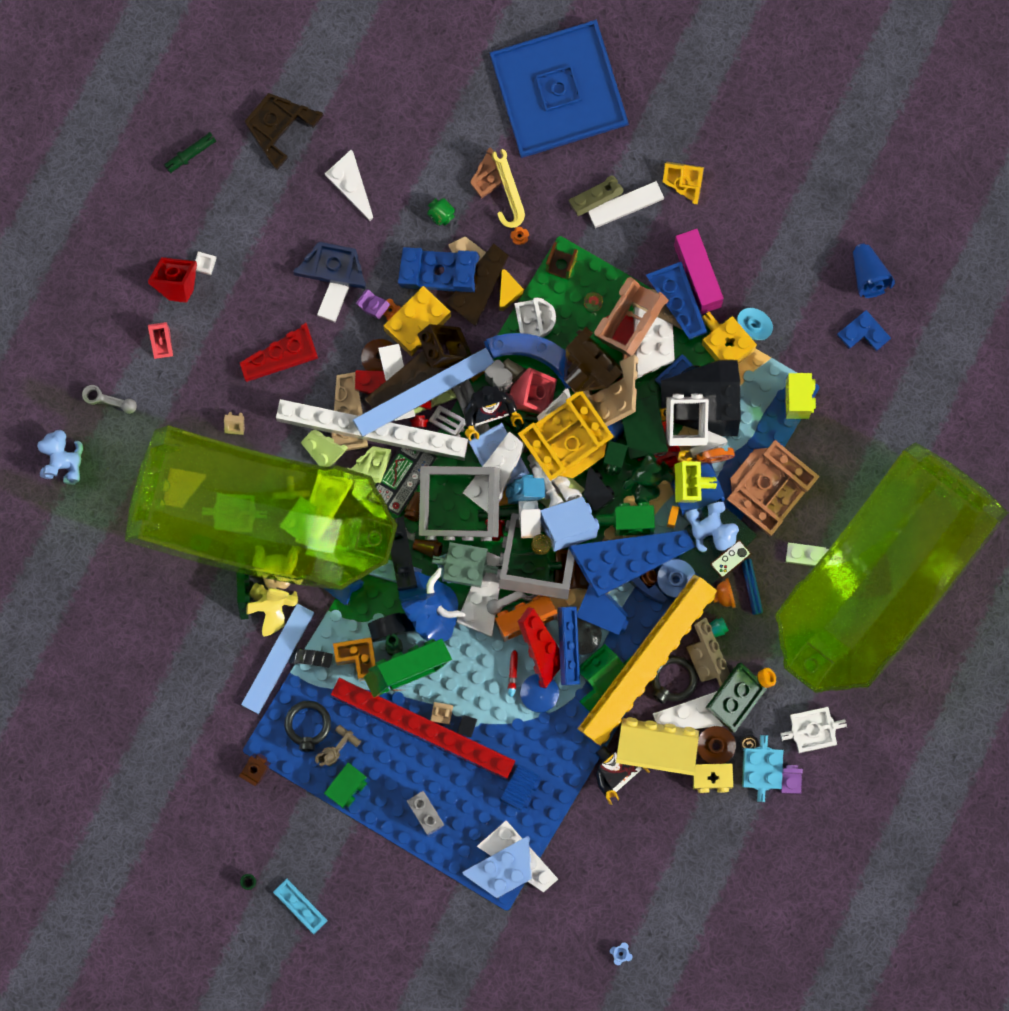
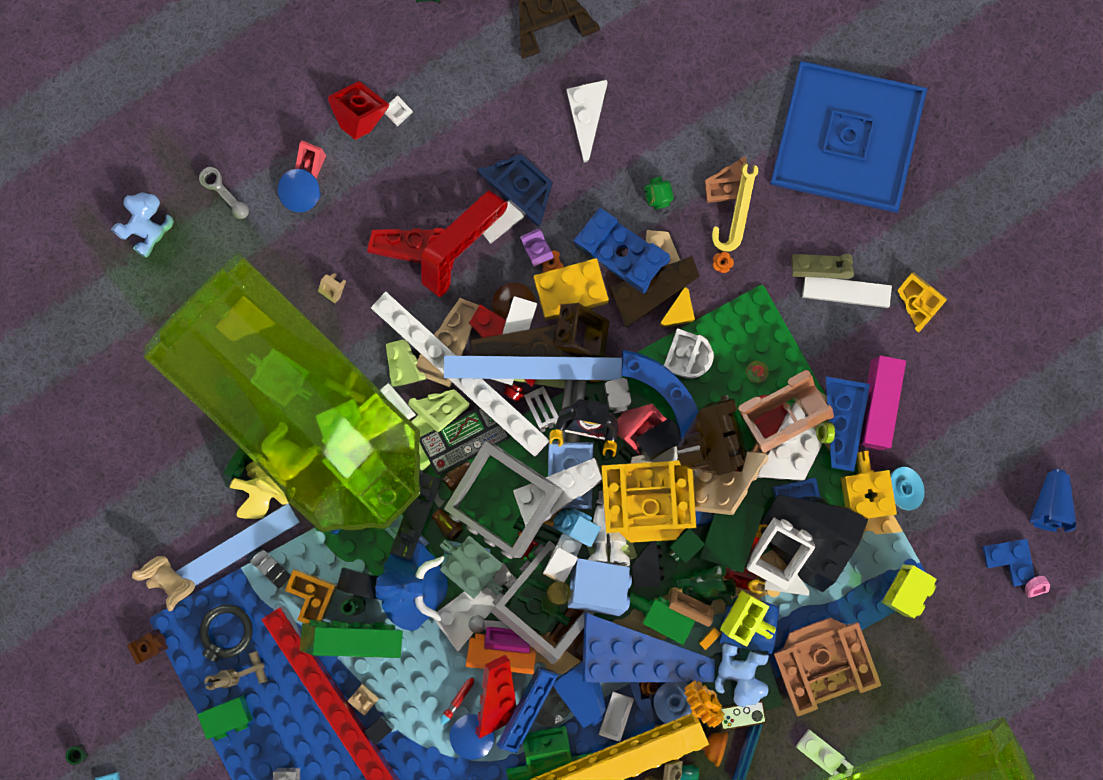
camera: 30 degrees right, 5 degrees up
(165, 365) = (298, 190): none -> blue dish
(240, 711) = (164, 577): none -> tan hair
(309, 332) = (455, 239): none -> red beam
(516, 369) = (638, 395): dark tan cone -> none
(520, 603) = (505, 640): none -> magenta tile
(549, 392) = (658, 439): none -> black slope
(556, 255) = (747, 303): reddish brown piece -> none
(638, 615) = (616, 716): none -> white tile
(645, 498) = (691, 607): none -> medium nougat tile
(669, 315) = (825, 432): none -> lime tile
(696, 563) = (704, 703): none -> light orange gear
(715, 455) = (788, 602): orange tile -> none
(893, 340) = (1037, 586): none -> bright pink tile

